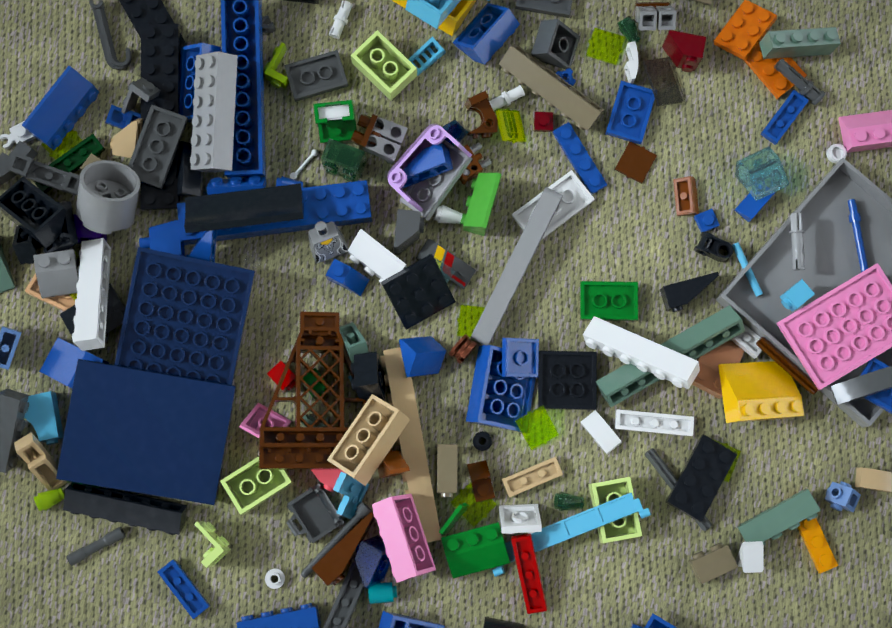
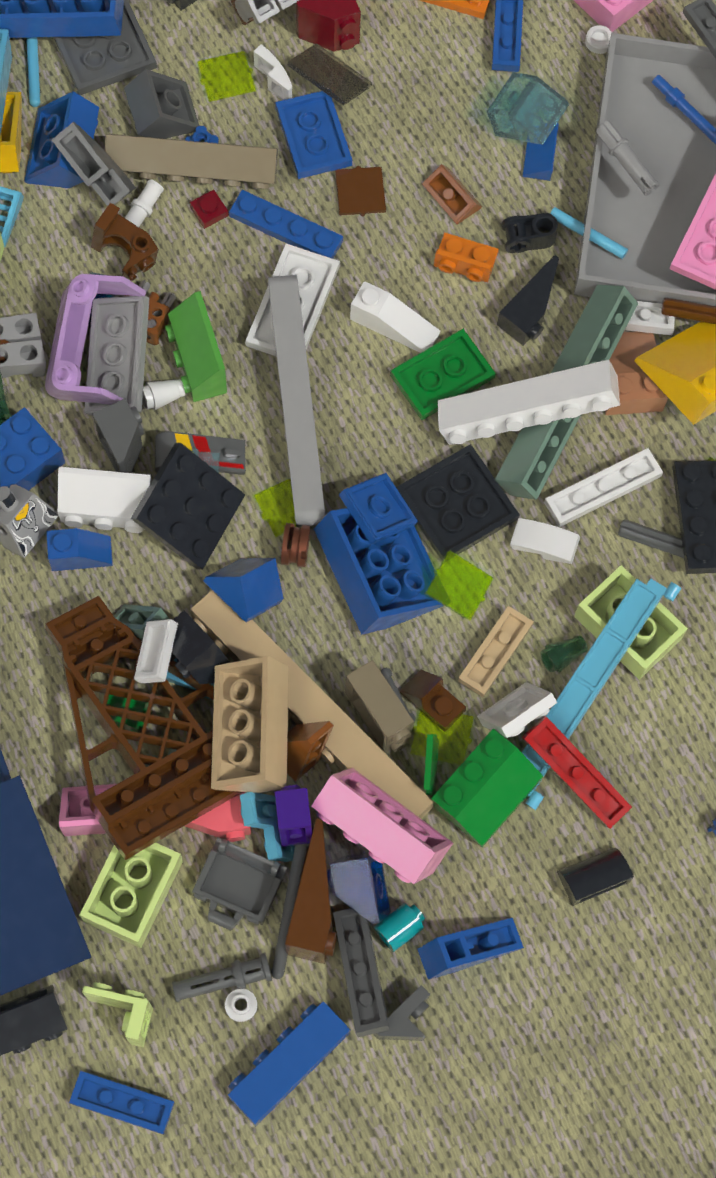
camera: 35 degrees left, 10 degrees down
(276, 373) = (64, 729): red brick -> none
(283, 561) = (183, 989): none -> dark grey pin
(346, 365) = (155, 651): none -> white tile
(361, 501) = (293, 815): none -> dark purple brick
(427, 164) = (95, 337): blue slope -> none
(465, 450) = (387, 673): none -> dark grey hinge
(477, 445) = (399, 656): black plate -> none
(492, 60) = (93, 164): none -> dark grey slope
(510, 125) = (170, 235): clear neon green piece -> none
(602, 251) = (392, 318): none -> white slope
(628, 29) = (242, 37): clear green cone -> none
(668, 239) = (465, 258): none -> orange bracket
(706, 220) = (497, 207): blue plate -> none
(796, 295) = (671, 220): medium azure brick -> none

